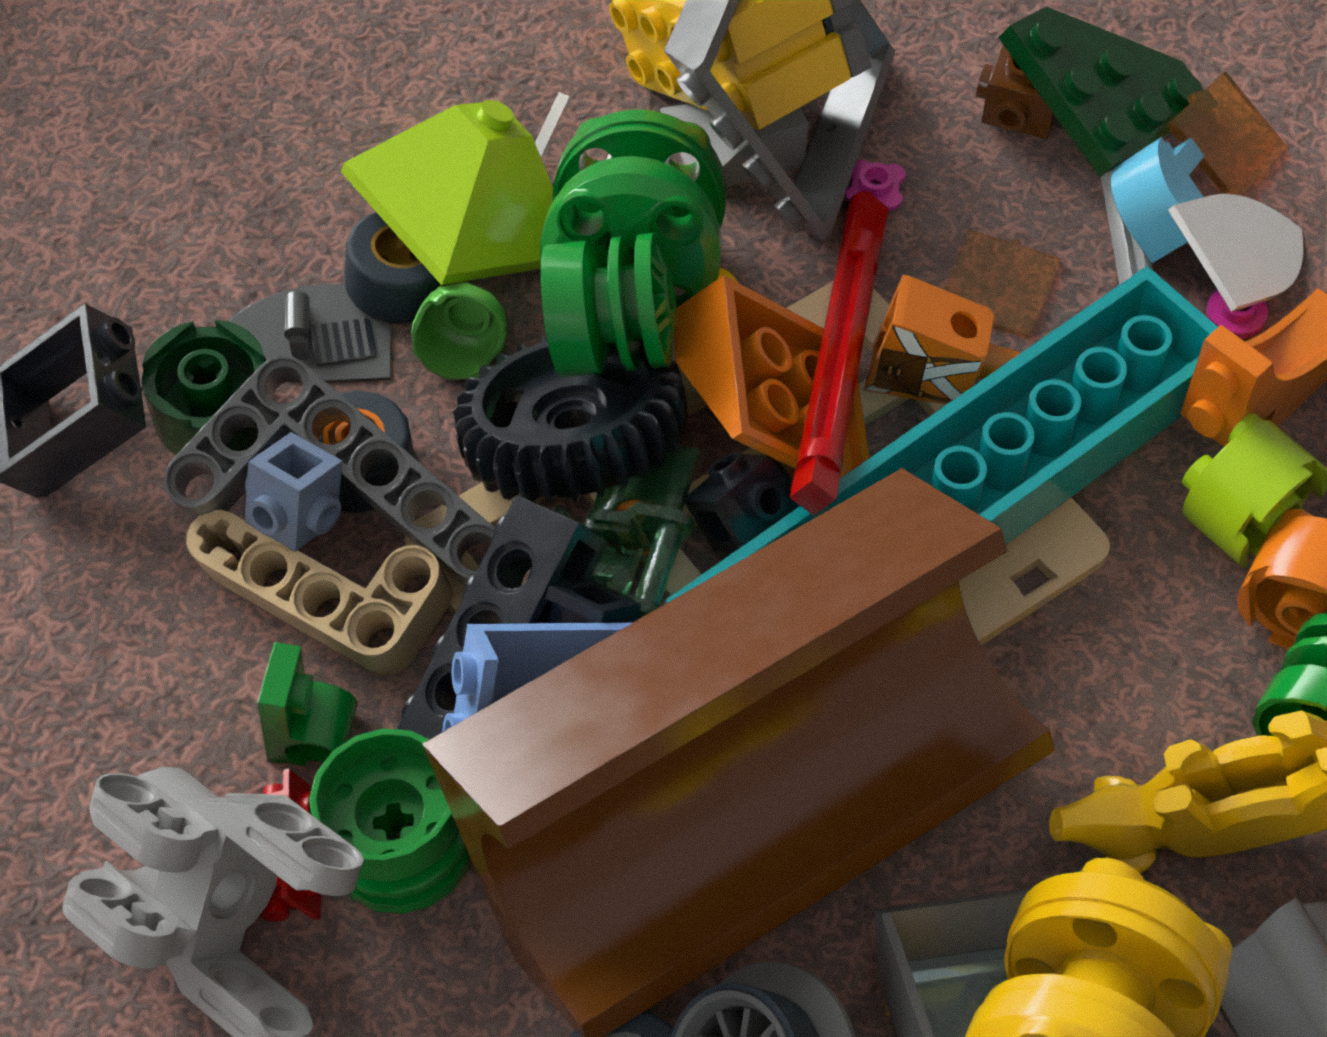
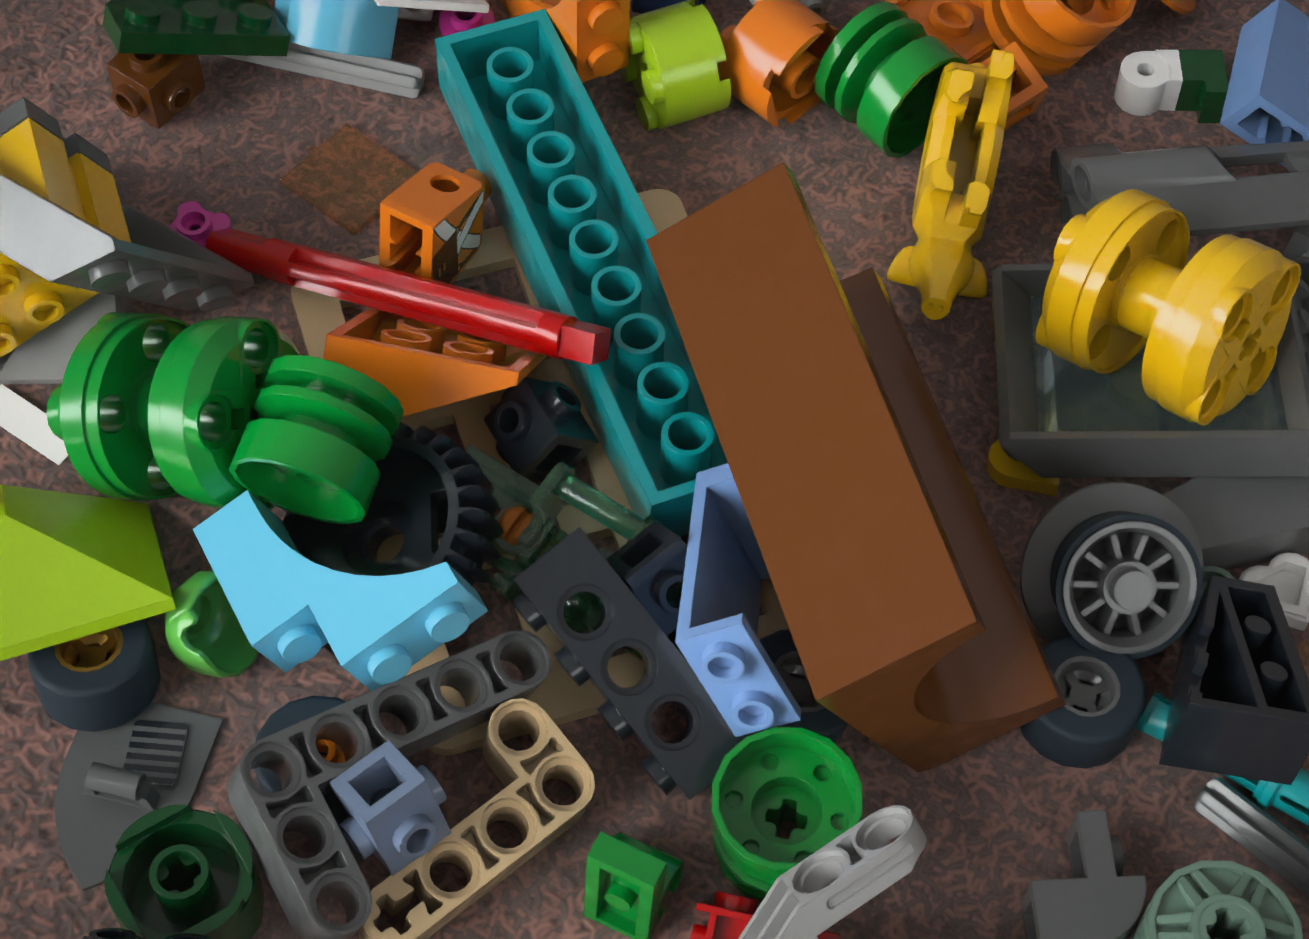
camera: 75 degrees left, 0 degrees up
(462, 370) = (299, 606): none -> medium azure arch

